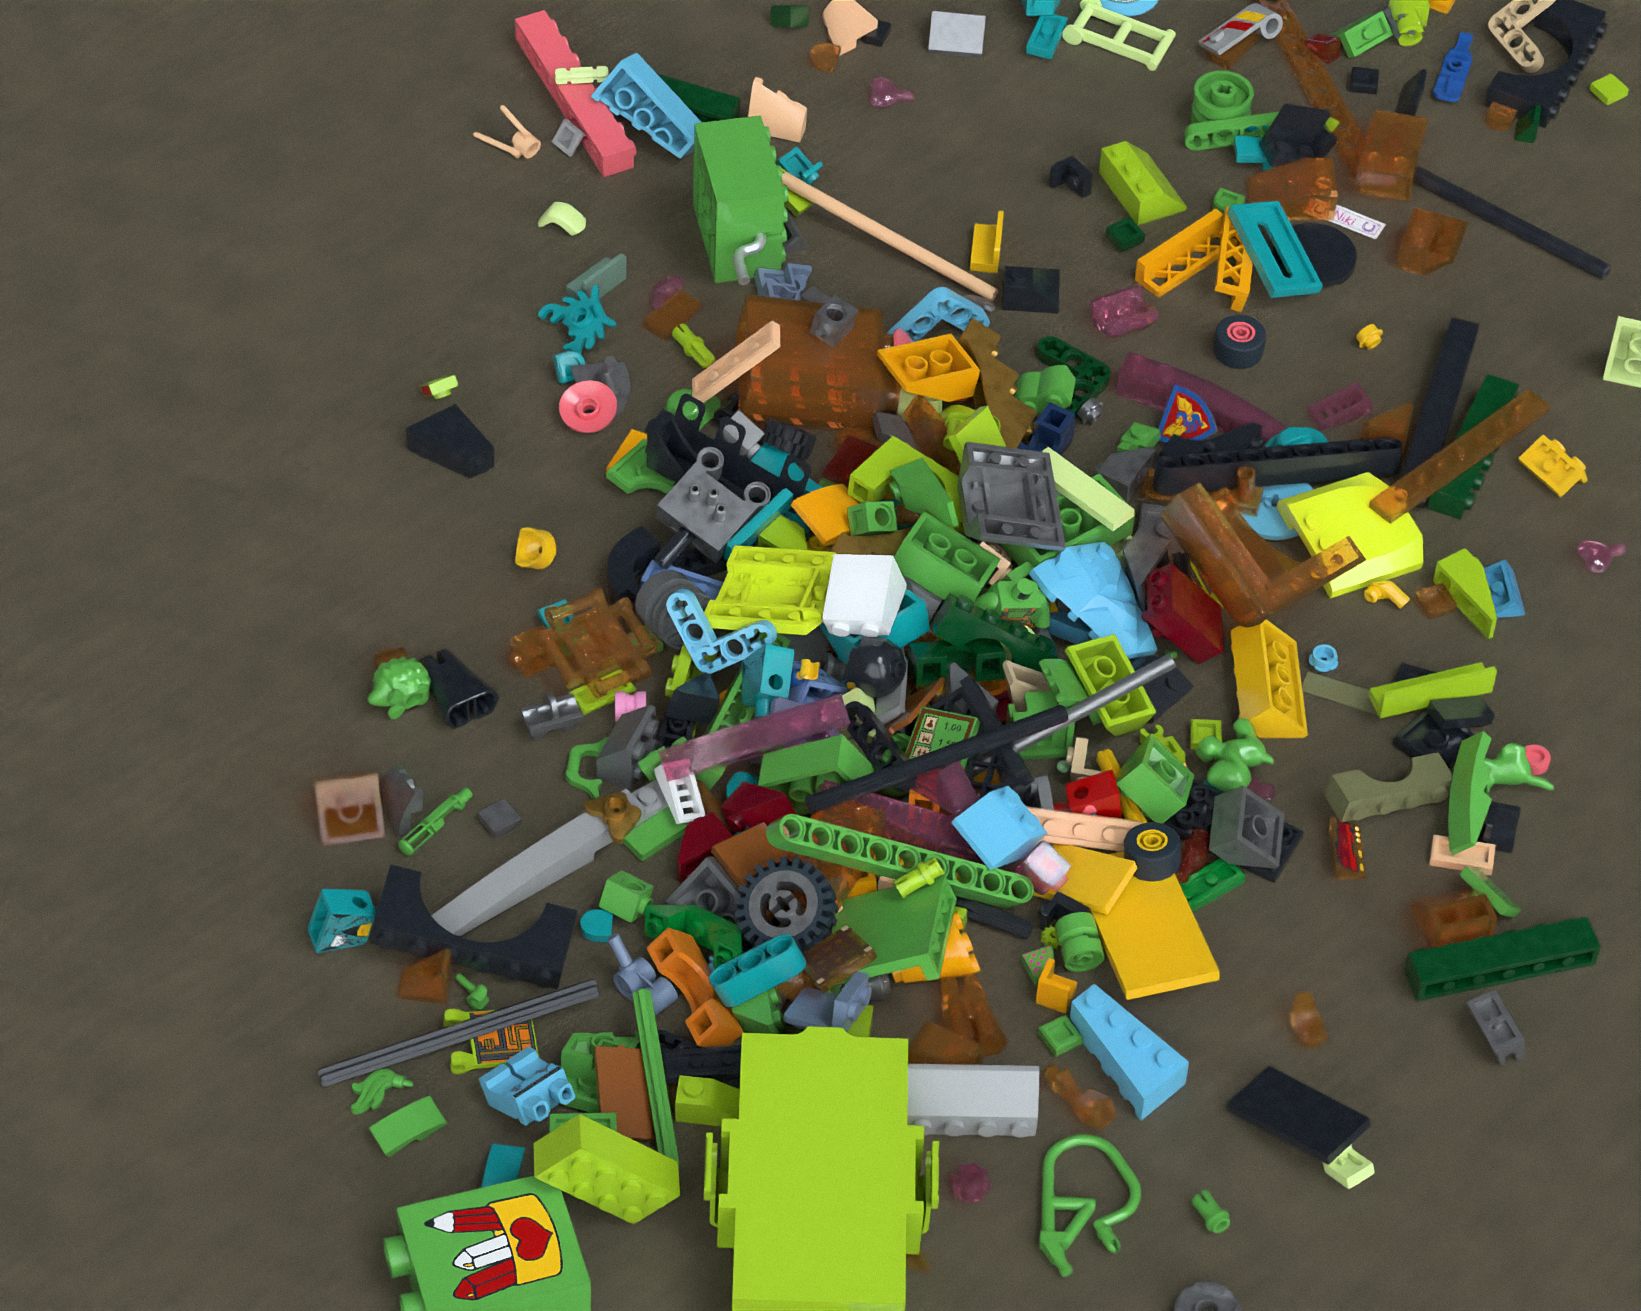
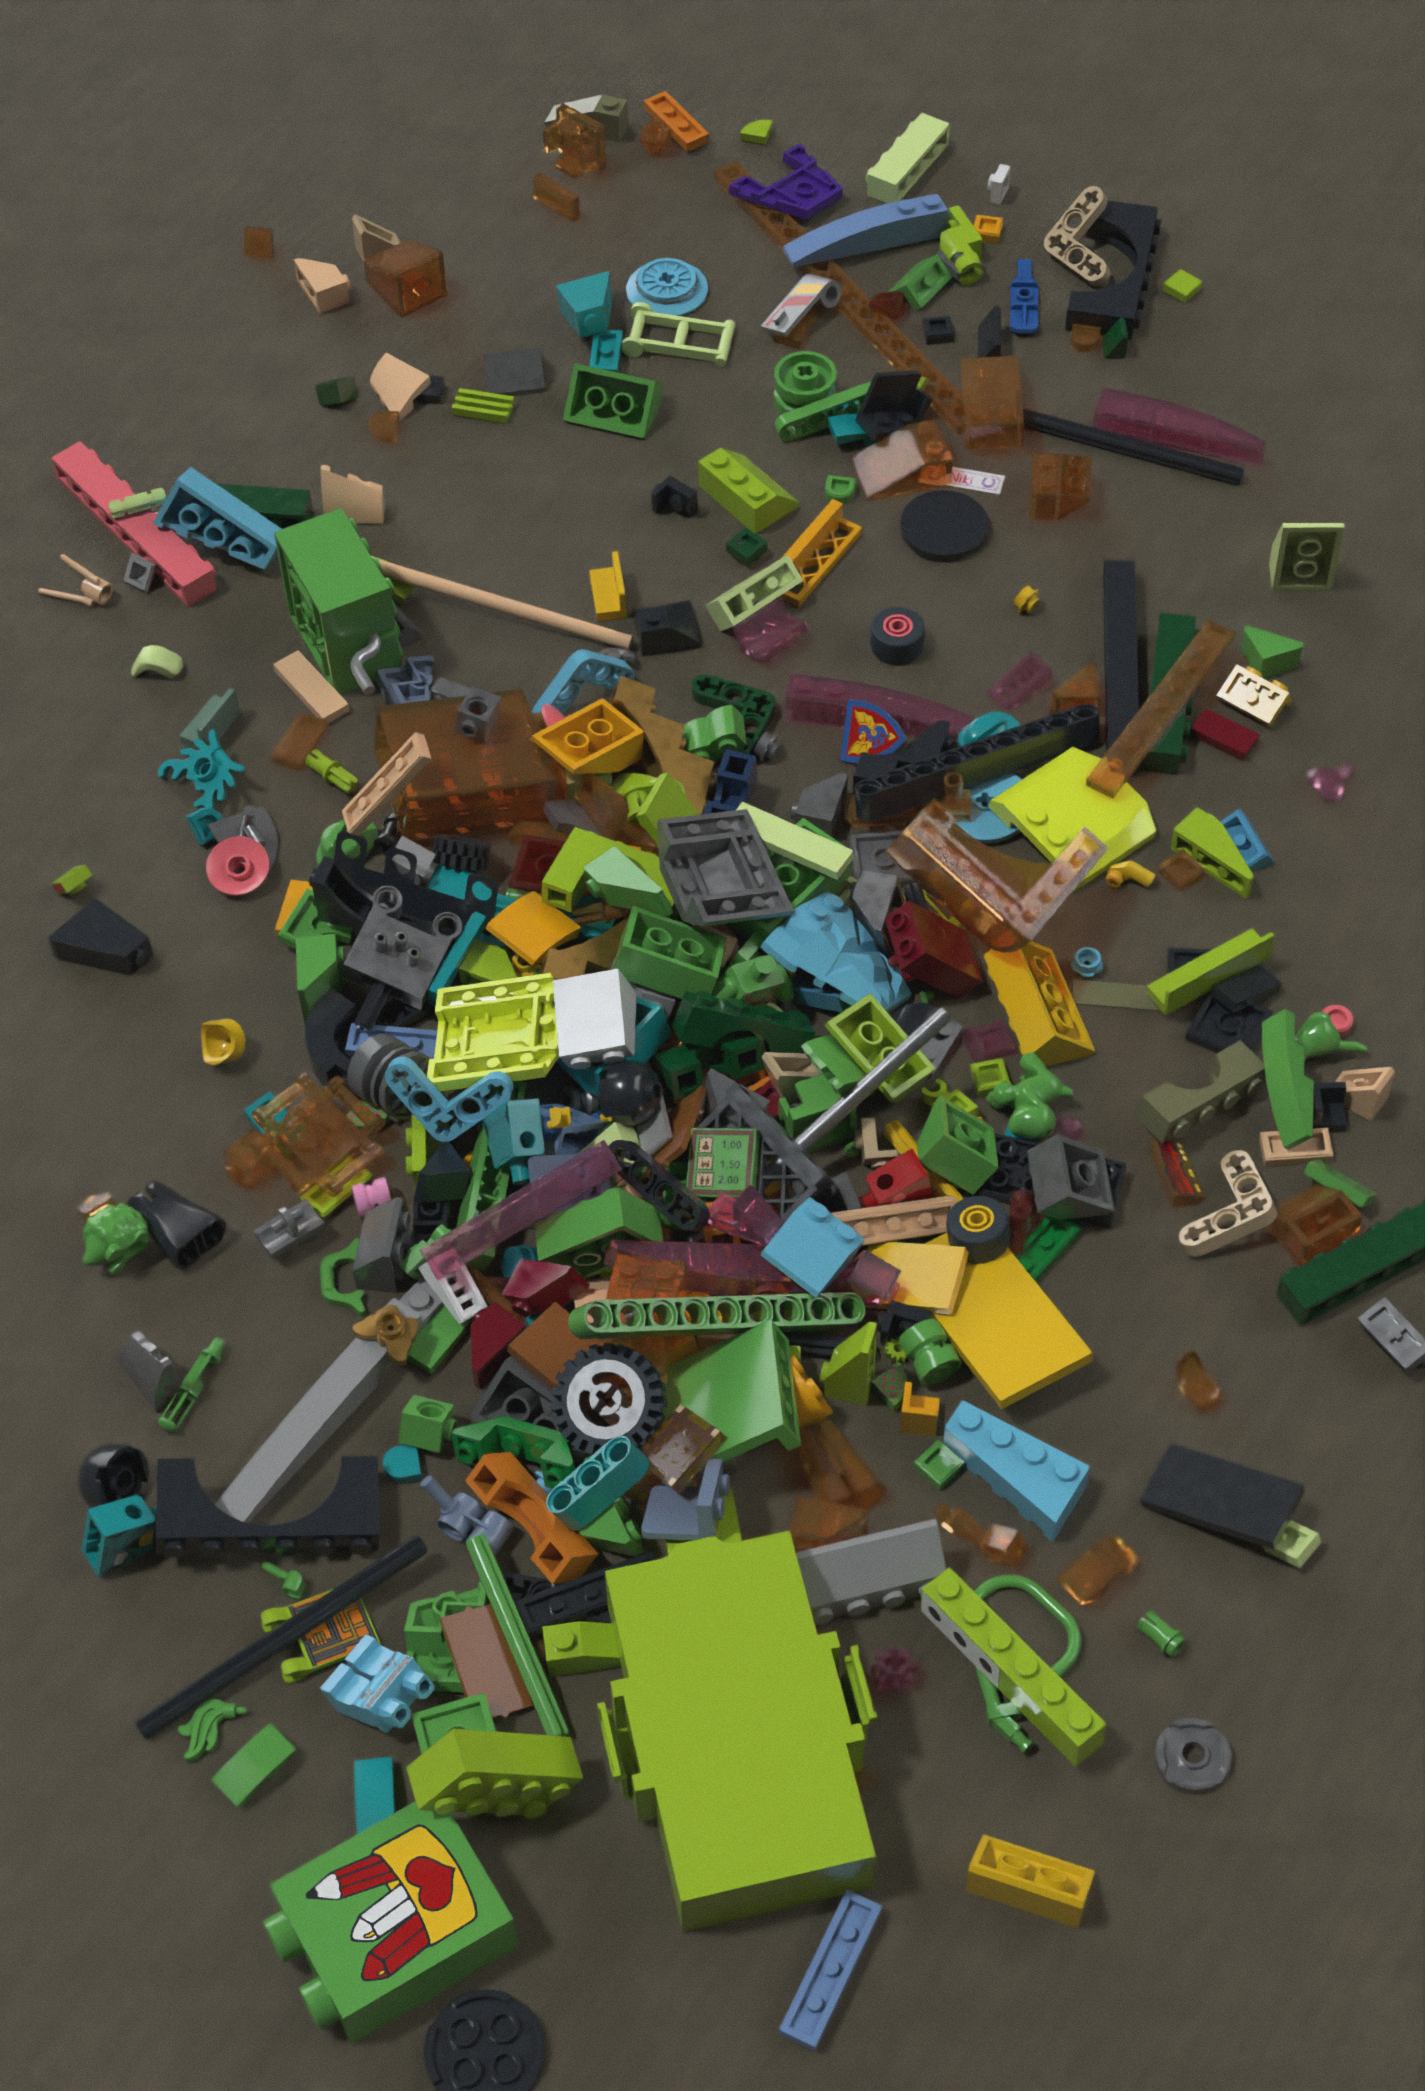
camera: 10 degrees left, 5 degrees up
(349, 807) = (93, 1394): clear orange slope -> none
(349, 869) = (112, 1474): none -> black cylinder
(428, 979) = (231, 1579): clear orange slope -> none
(499, 818) = (262, 1363): flat silver tile -> none
(634, 506) = (318, 969): none -> bright green slope
(666, 288) = (286, 715): clear pink rock -> none
(695, 270) = (311, 687): none -> light nougat tile
(799, 166) = (392, 550): teal bracket -> none
(872, 518) = (577, 925): bright green brick -> none
(886, 93) = (460, 451): clear pink rock -> none
(919, 877) = (749, 1326): lime pin -> none
(920, 57) = (481, 403): none -> lime tile
(936, 759) = (725, 1190): black axle -> none
(1007, 937) = (852, 1367): none -> lime slope
(1040, 78) = (612, 400): none -> bright green slope
(1071, 1201) = (1013, 1667): none -> lime brick
(1118, 275) = (754, 593): none -> yellowish green slope
(1139, 437) = (825, 764): bright green plate -> none
(1170, 1146) = (1097, 1569): none -> clear orange slope
(1213, 704) = (988, 1041): none -> clear pink tile
(1240, 273) = (874, 541): light orange fence -> none
(1273, 218) = (892, 494): teal piece -> none
(1396, 896) = (1246, 1205): none -> tan beam
(1514, 494) = (1224, 734): none -> dark red tile
(1541, 822) = (1366, 1089): none -> light nougat slope
(1557, 214) = (1175, 427): none -> clear pink slope
(1580, 432) = (1270, 652): none -> bright green slope

